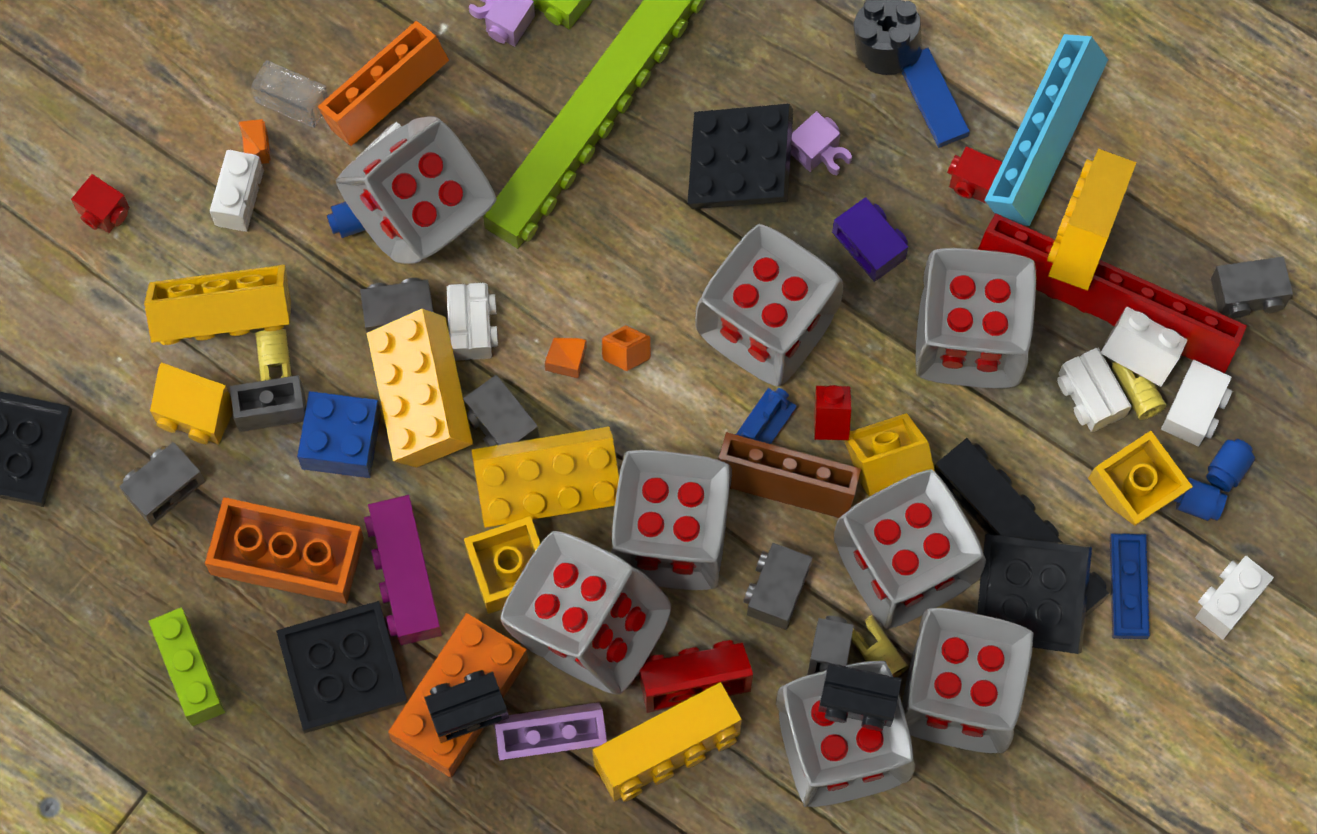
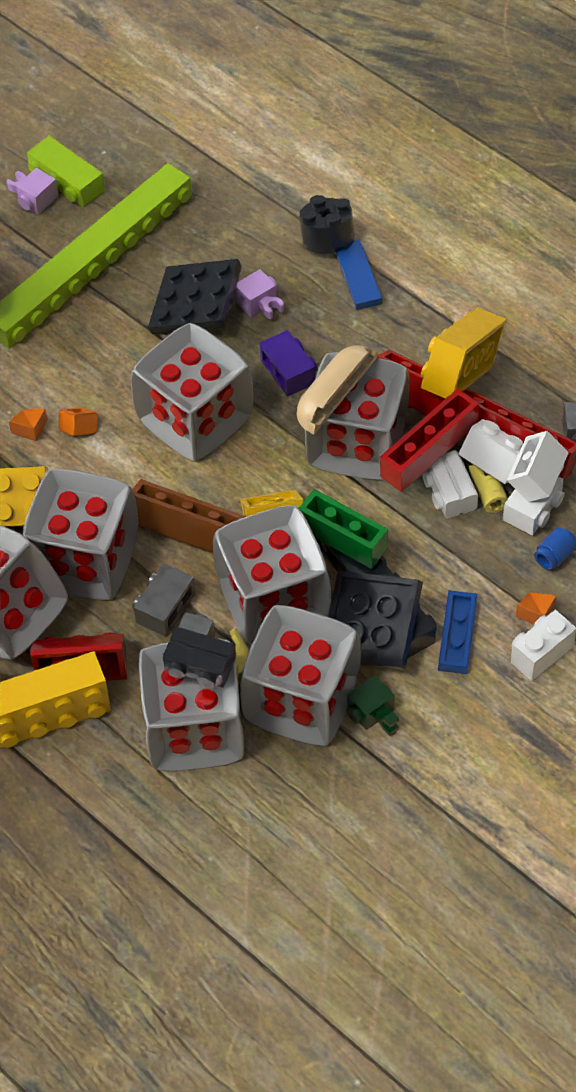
camera: 10 degrees right, 15 degrees down
(768, 416) = (184, 477): blue hinge -> none
(832, 412) = (232, 477): red brick -> none
(951, 301) = (333, 385): none -> tan brick
(973, 174) = (380, 326): red brick -> none
(986, 481) = (345, 528): none -> green brick
(1046, 129) = (442, 297): medium azure brick -> none
(1047, 696) = (372, 704): none -> dark green brick
(1068, 346) = (429, 440): none -> red brick
(1139, 479) = (474, 545): yellow slope -> none
(1202, 501) = (525, 571): blue brick -> none
(1204, 371) = (538, 466): none -> white brick
(1217, 545) = (534, 606): none -> orange slope

